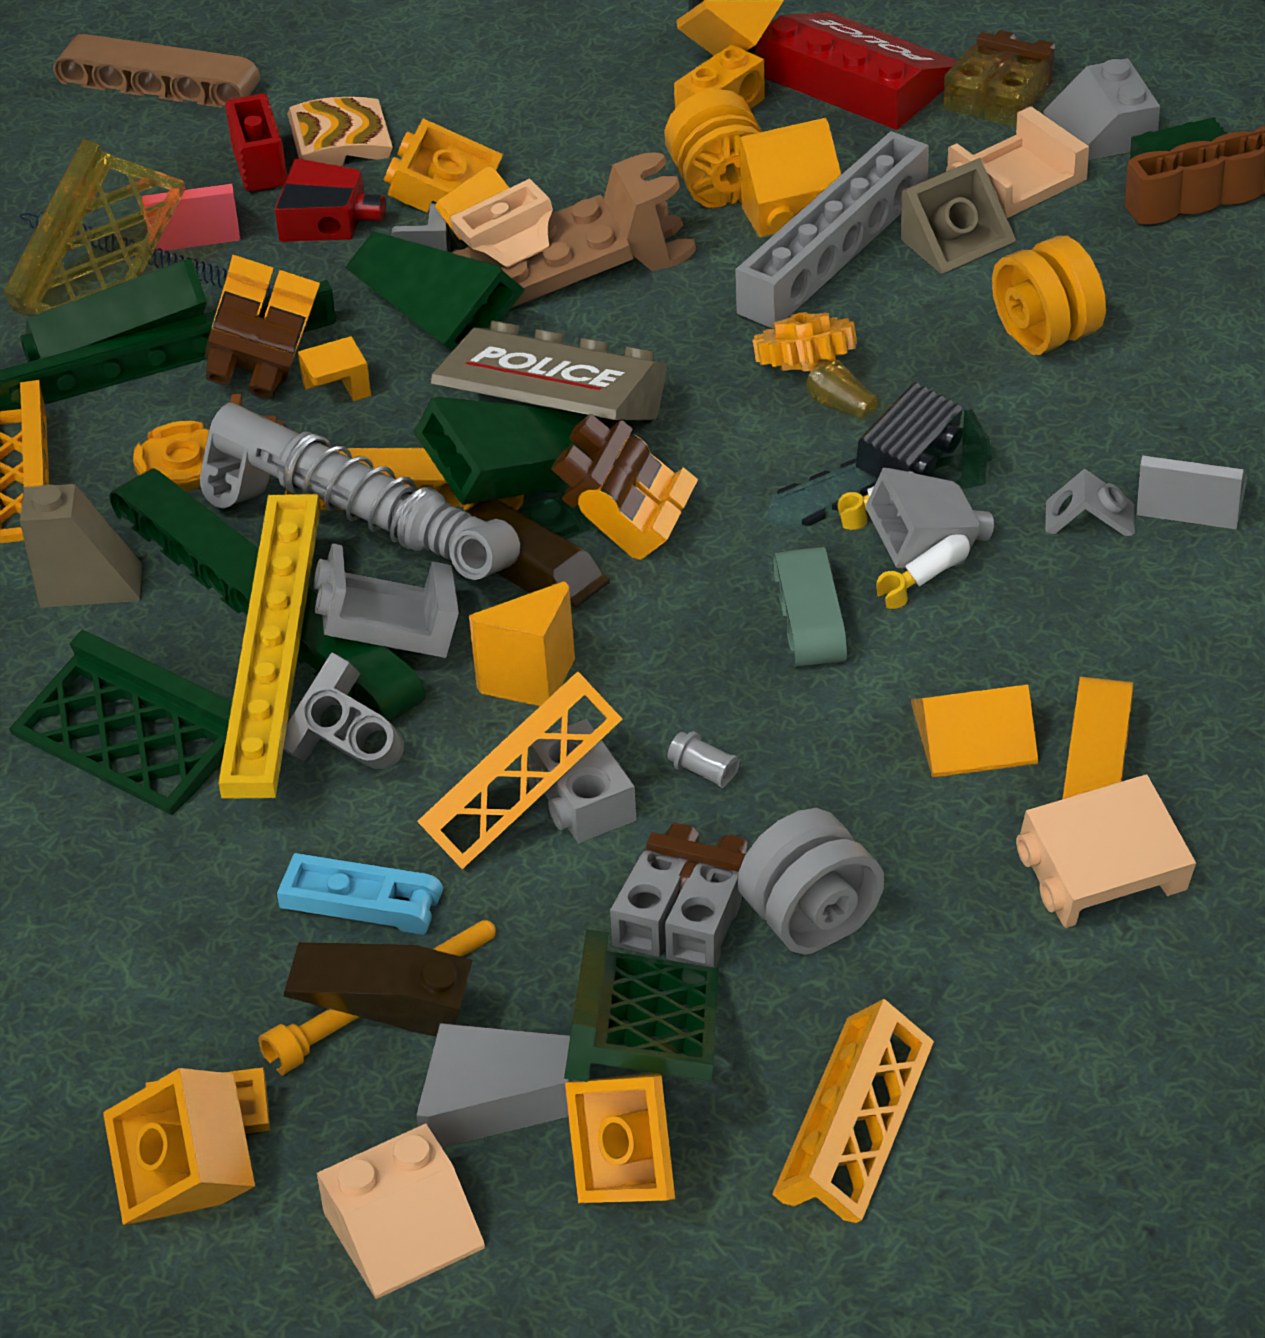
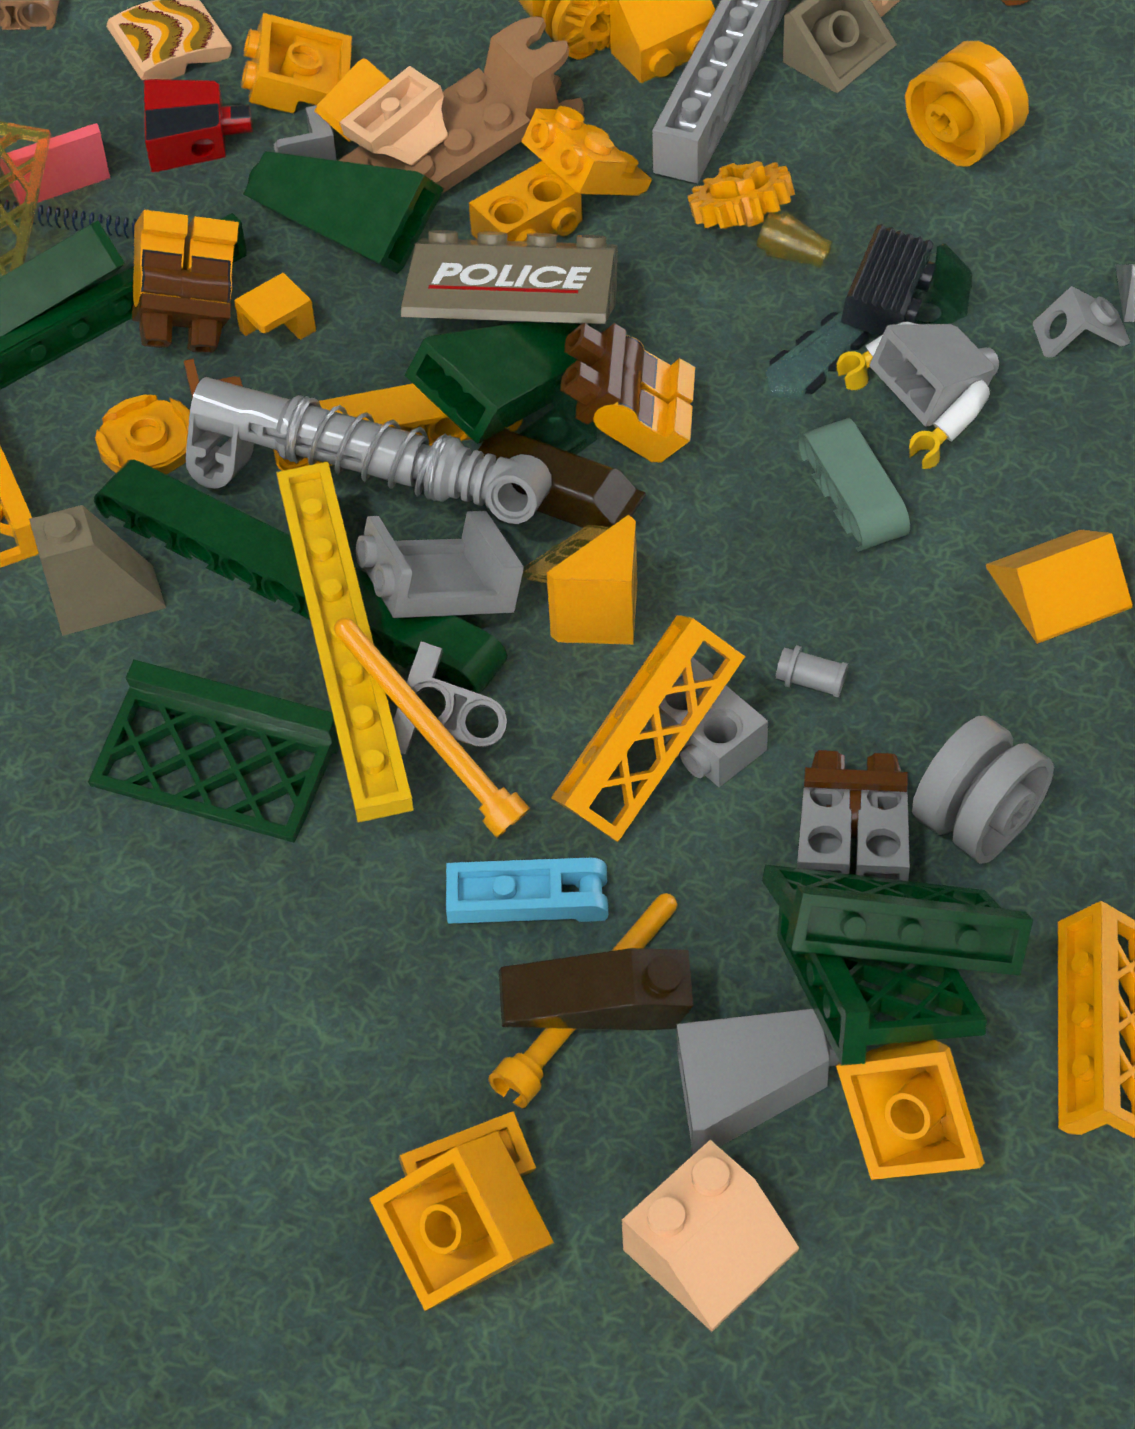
camera: 15 degrees left, 10 degrees up
(256, 142) = (92, 66): red brick -> none
(362, 816) = (498, 806): none -> light orange piece
(607, 315) = (528, 204): none -> light orange brick
(668, 284) = (583, 154): none -> light orange plate
(675, 973) = (898, 920): none -> dark green fence

